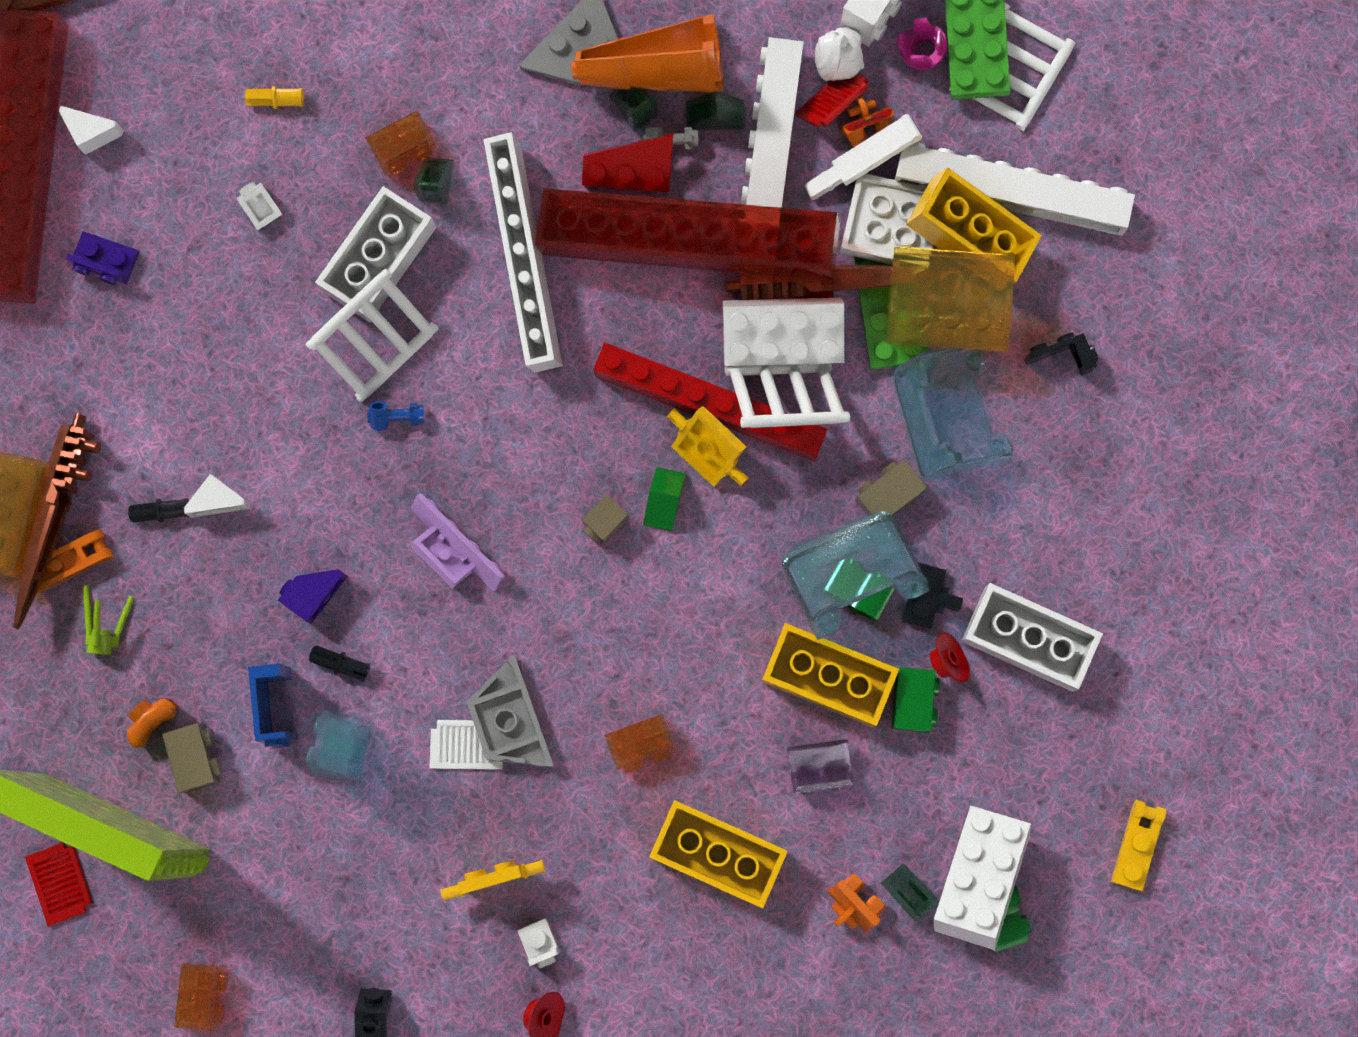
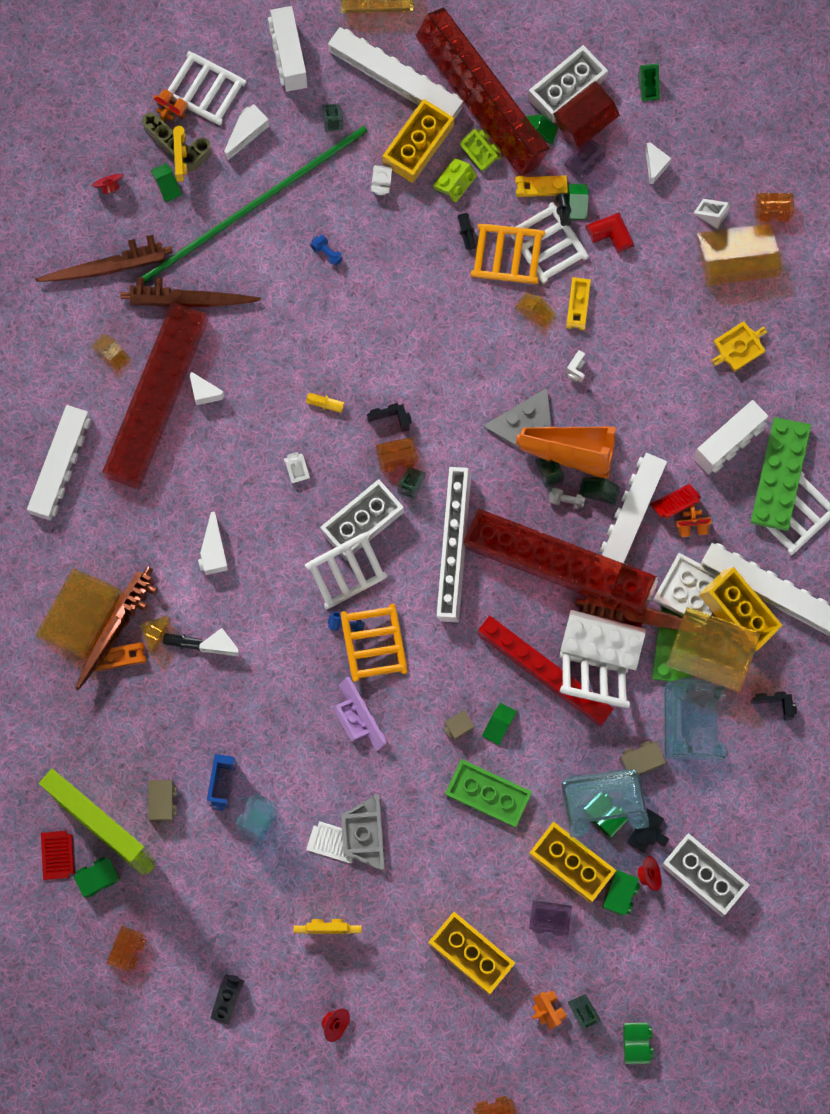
camera: 10 degrees right, 5 degrees down
(99, 640) = (122, 710): lime plant -> none
(103, 257) = (191, 474): dark purple bracket -> none
(111, 509) = (154, 631): none -> clear yellow slope
(124, 903) = (96, 877): none -> green brick
(147, 718) = (140, 768): orange piece -> none
(165, 361) = (212, 550): none -> white slope
(311, 592) = (263, 719): dark purple slope -> none
(339, 663) = (268, 768): black axle -> none
(377, 80) = (393, 409): none -> black bracket
(418, 459) = (353, 655): none -> light orange bar
(539, 943) = (344, 977): white bracket -> none
(631, 166) = (537, 509): red wing -> none
(639, 743) = (442, 871): clear orange brick -> none
(676, 607) = (488, 793): none -> bright green plate
(708, 446) = (536, 698): yellow plate -> none
(839, 54) = (687, 475): white hair -> none
(866, 156) = (686, 544): white piece -> none
(922, 31) = (743, 475): dark pink piece -> none
(982, 877) = (631, 1014): white brick -> none
(1138, 846) = (735, 1025): yellow plate -> none

